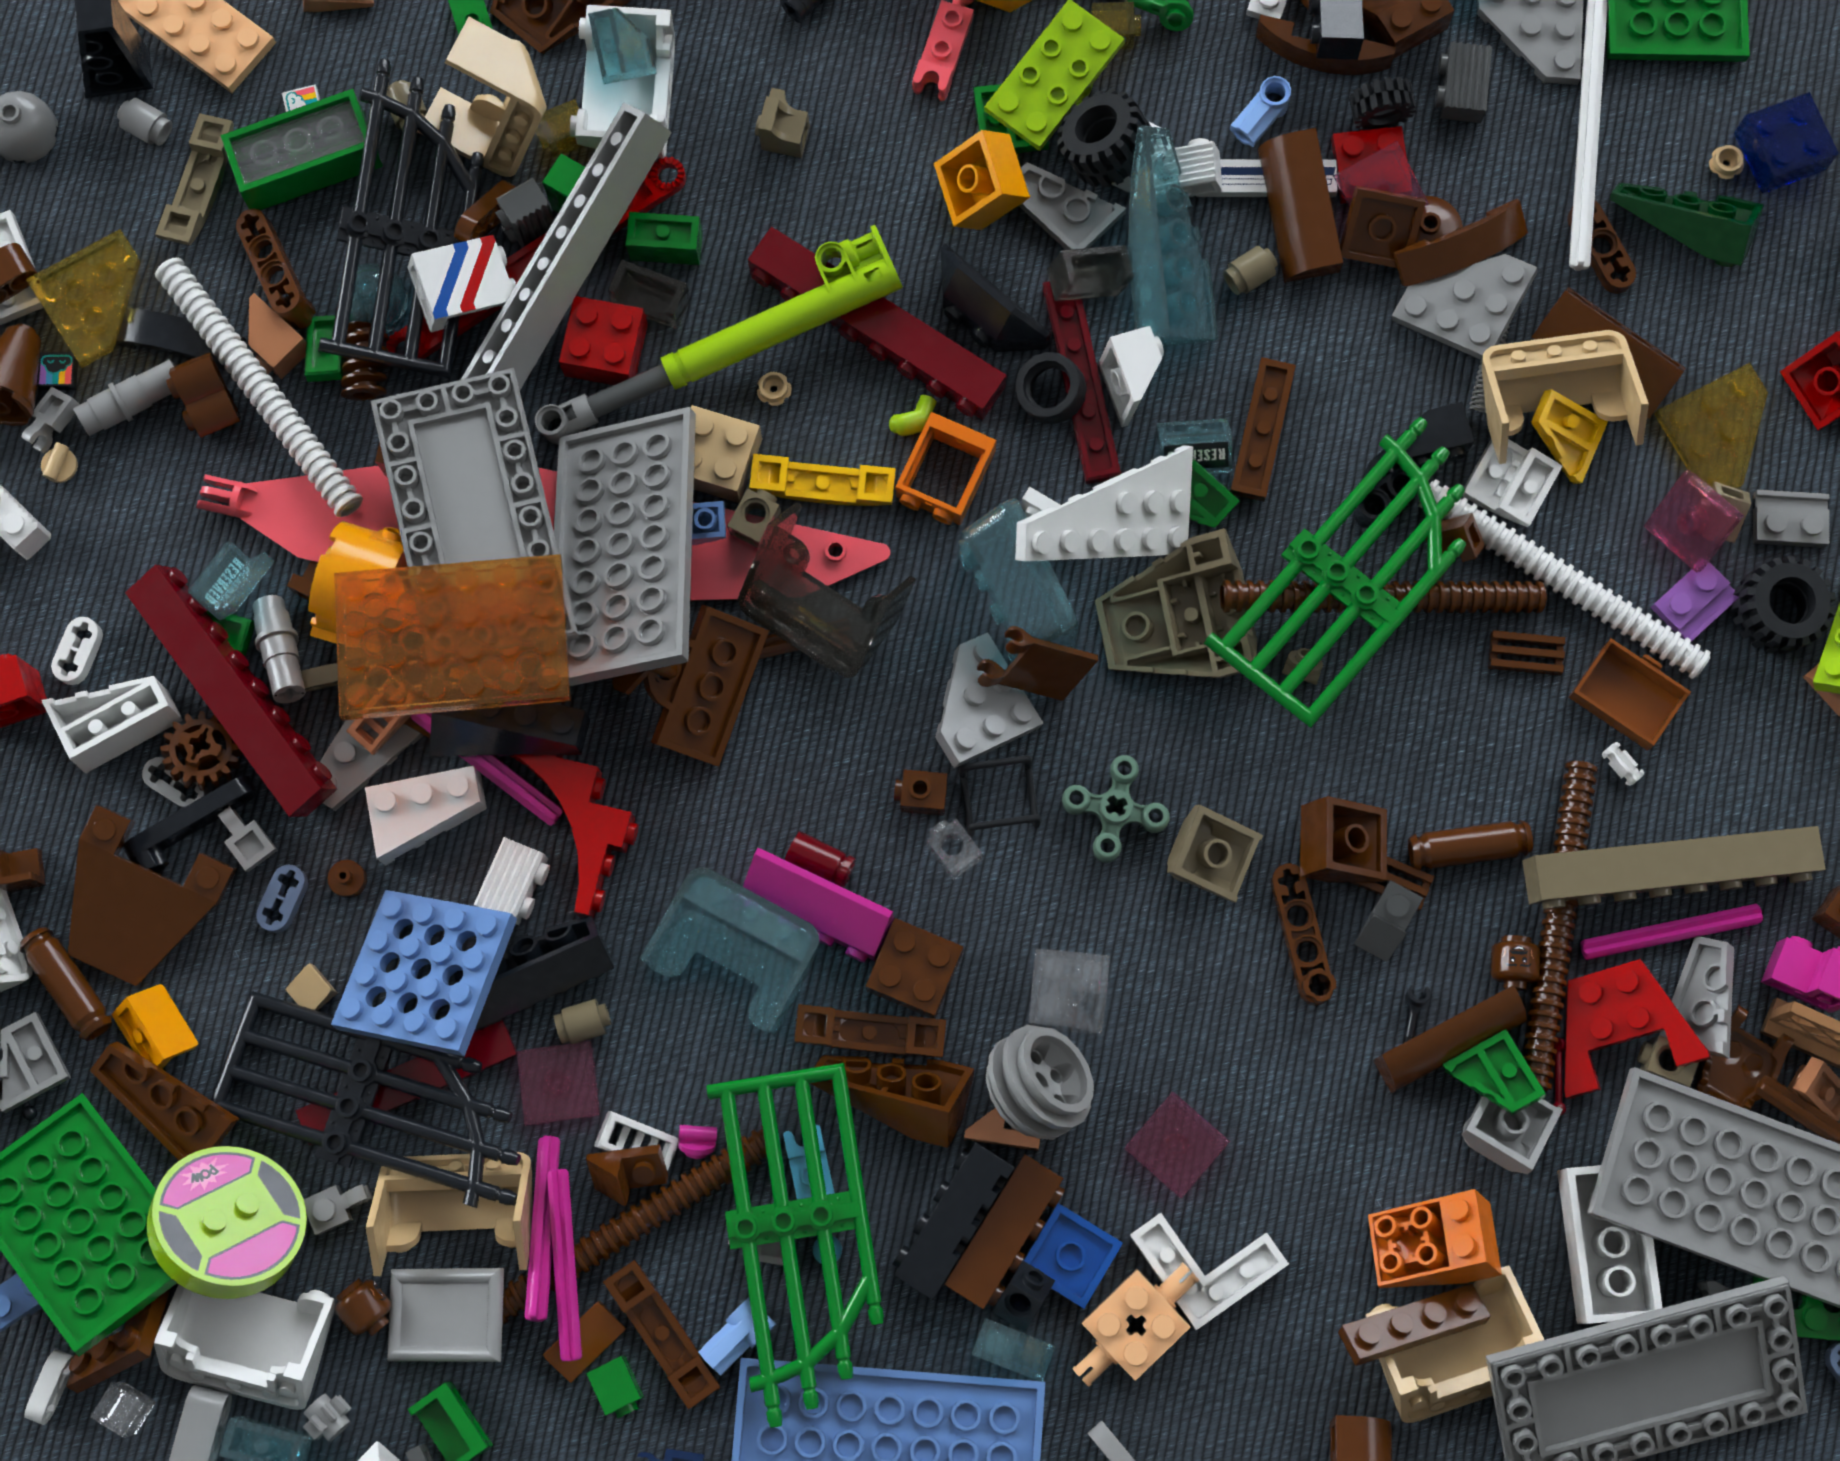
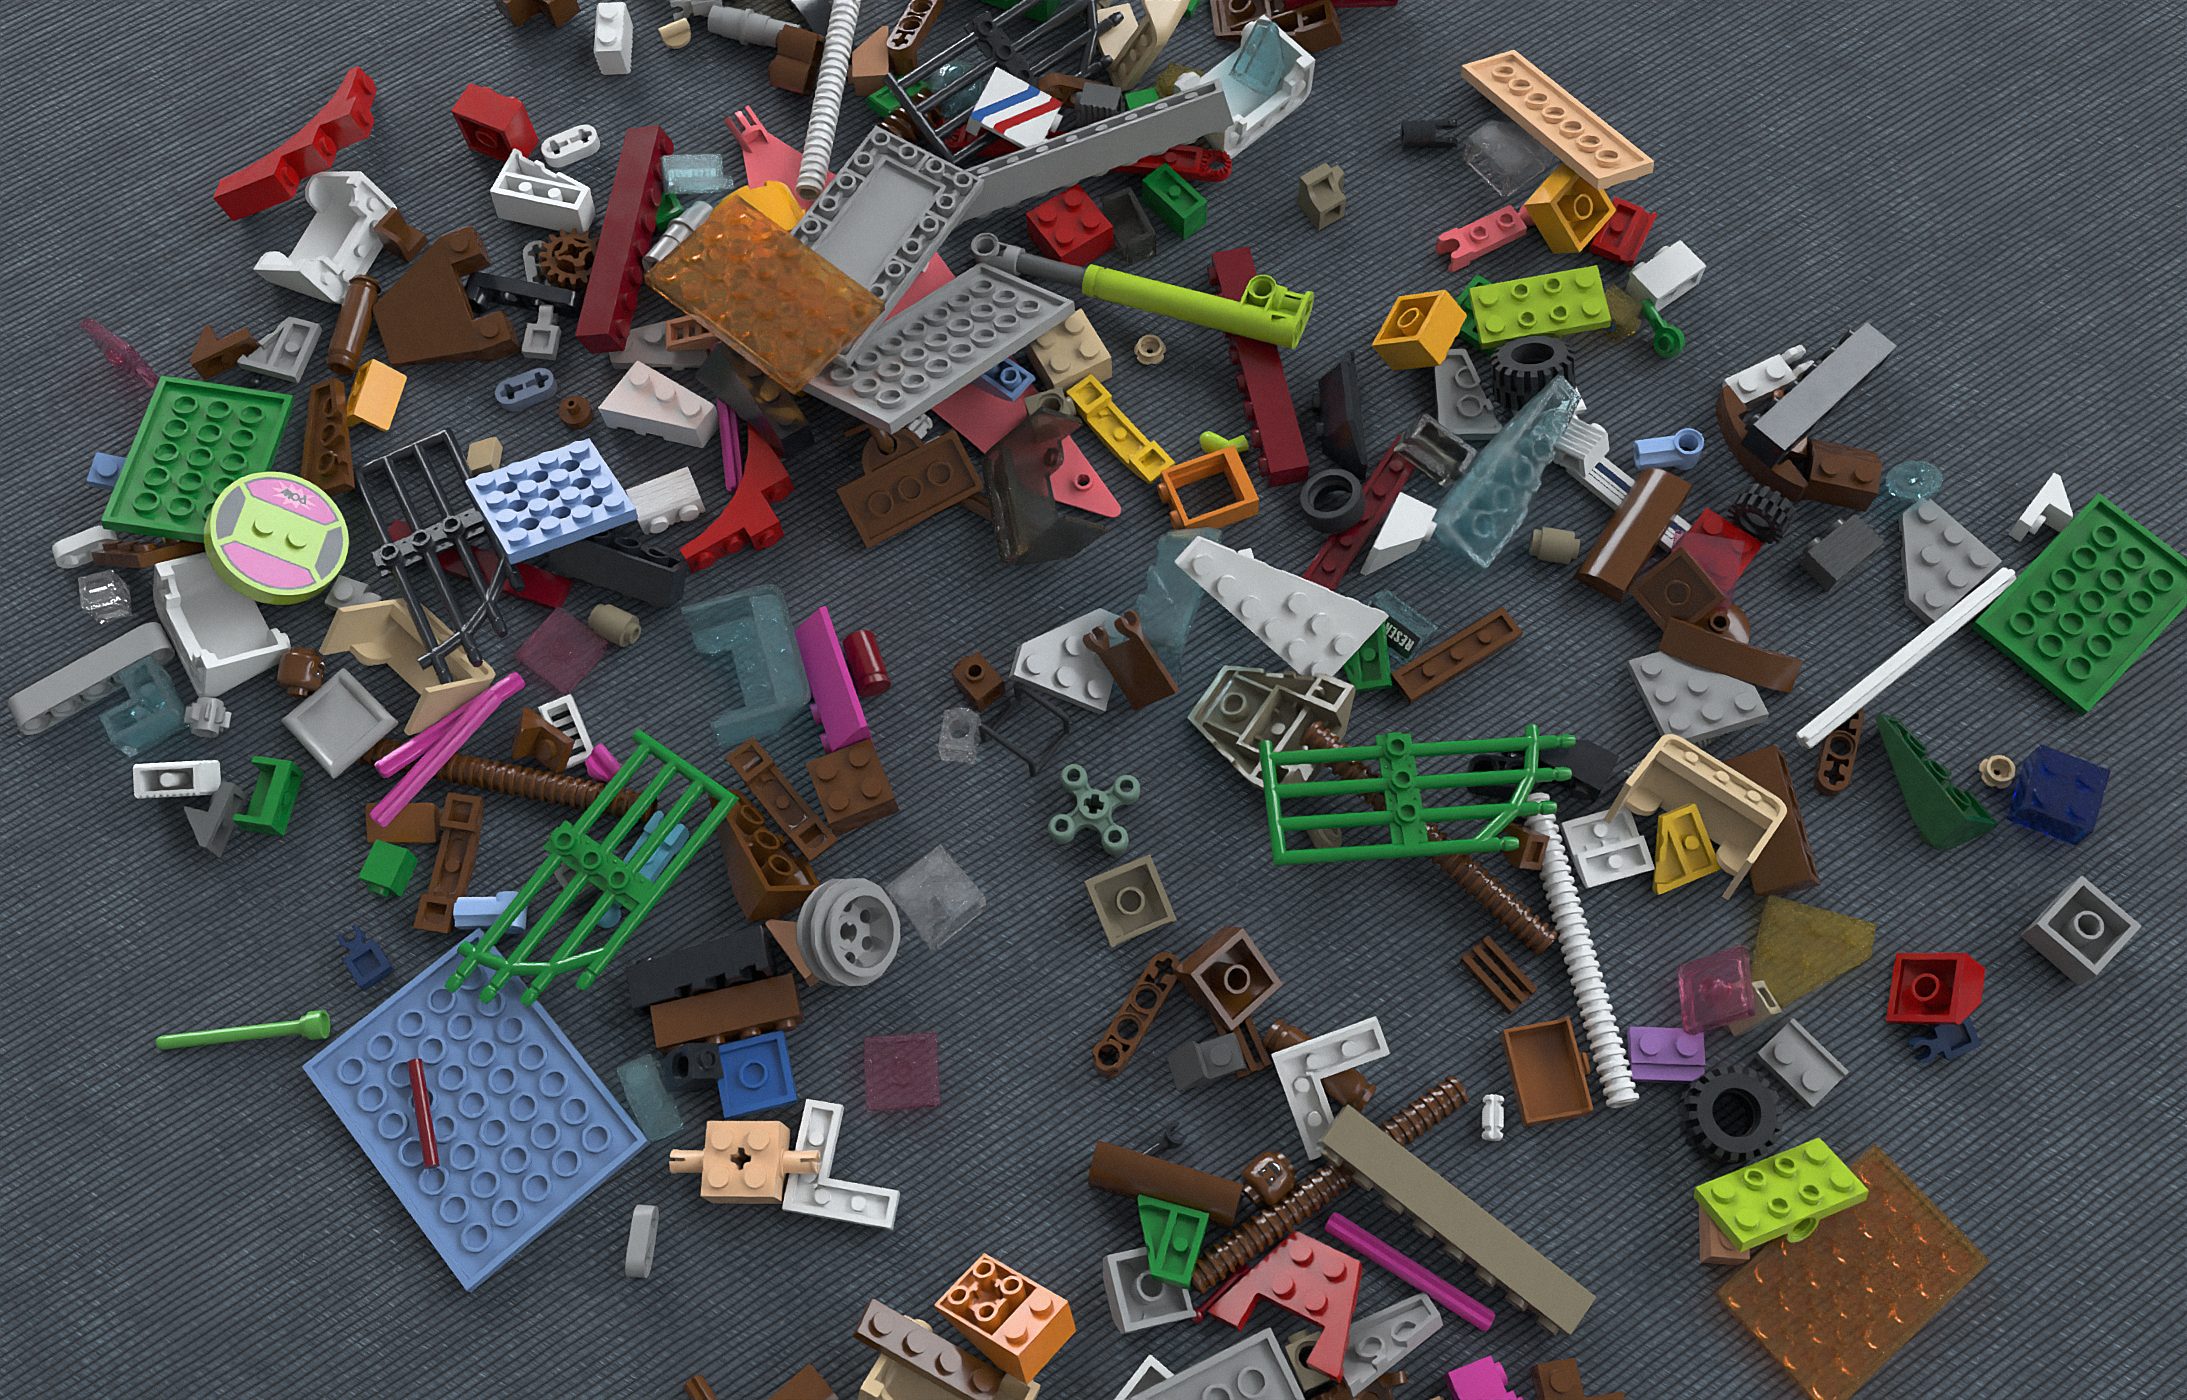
camera: 45 degrees right, 10 degrees down
(1469, 853) = (1308, 1062): none -> white plate

